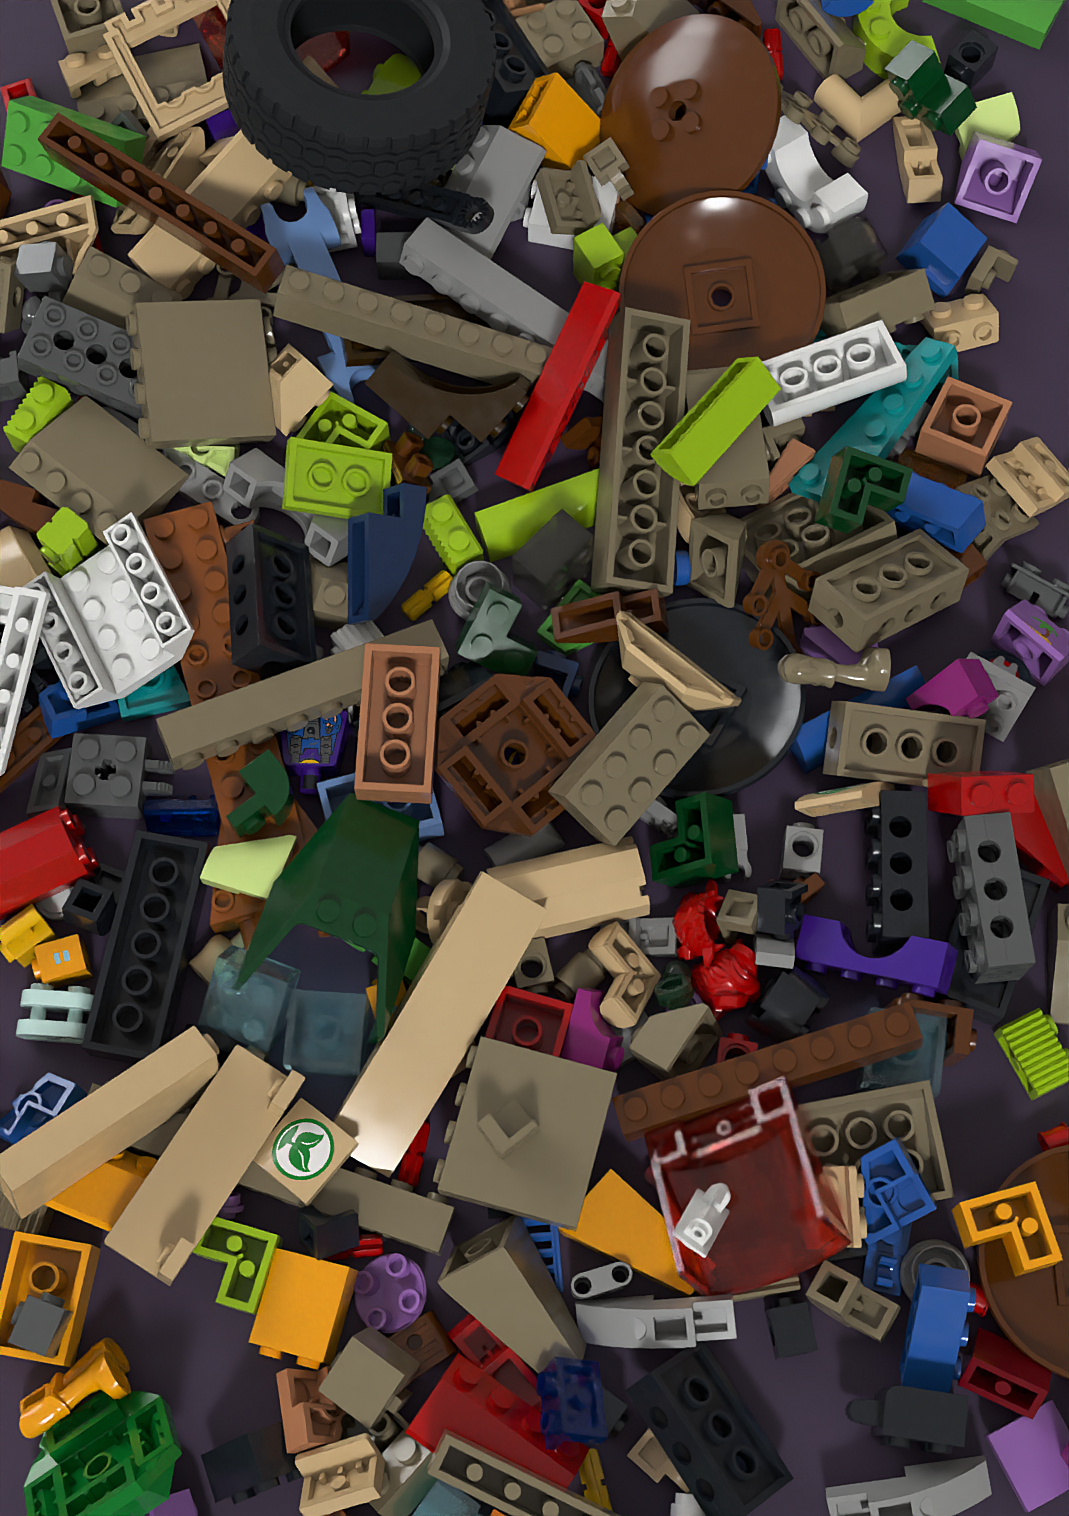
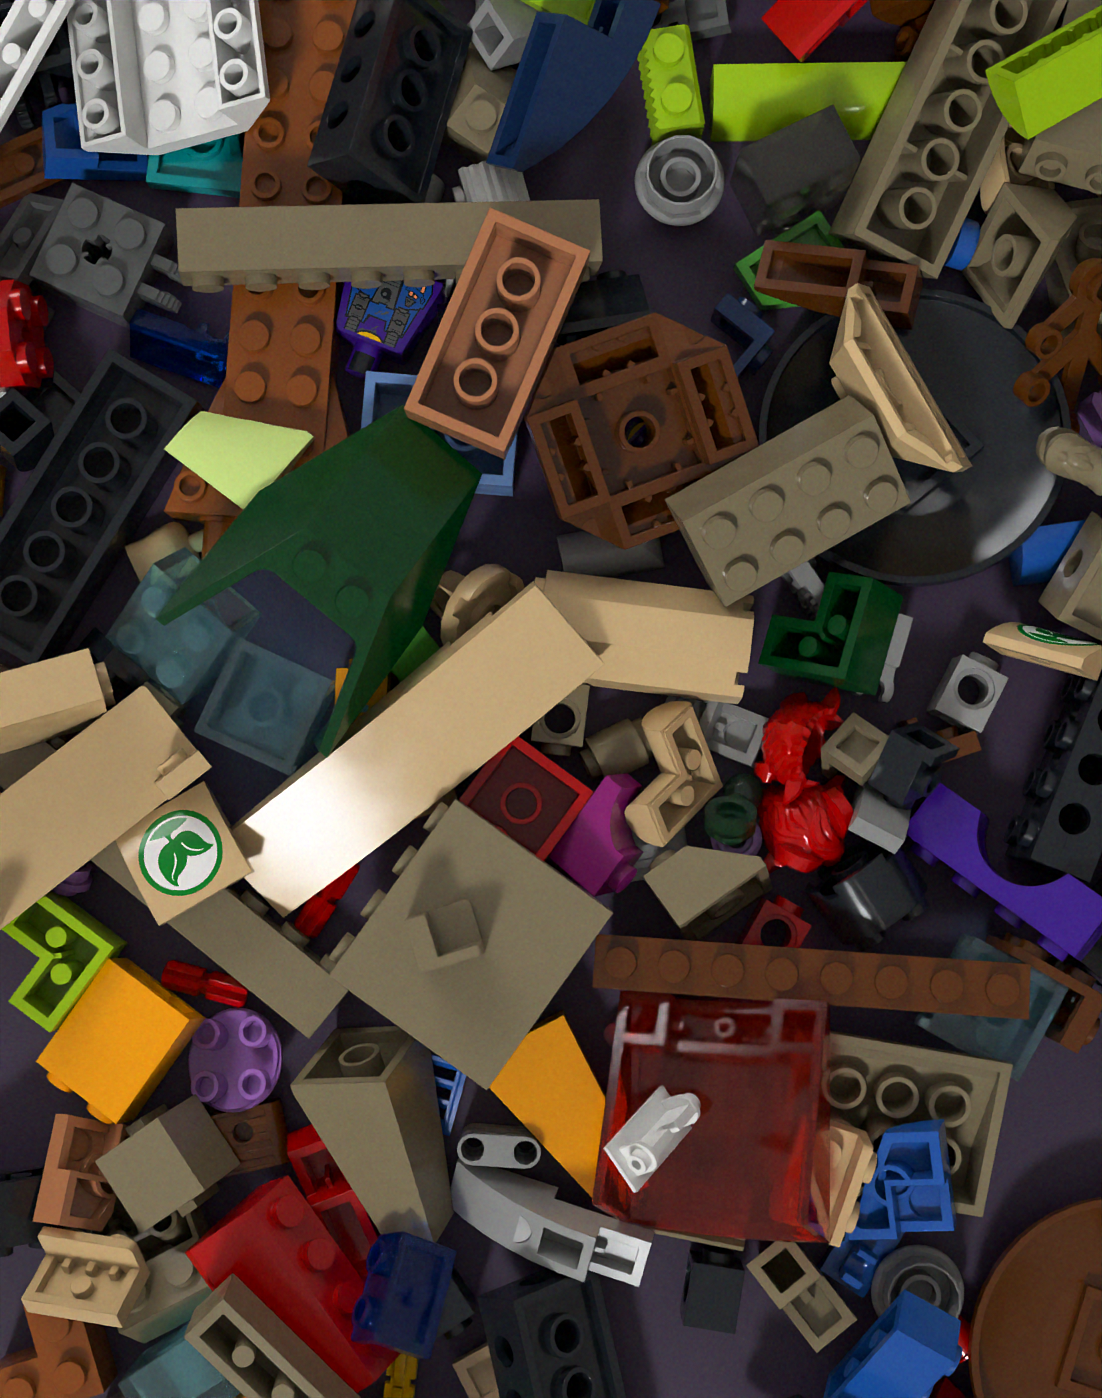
camera: 15 degrees right, 15 degrees up
(271, 797) = (300, 367): dark green brick -> none
(327, 1235) = (178, 969): black panel -> none
(422, 599) = (600, 161): yellow piece -> none
(437, 865) = (487, 537): dark tan brick -> none
(487, 634) = (666, 250): dark green brick -> none
(1018, 1219) = (1051, 1281): light orange brick -> none

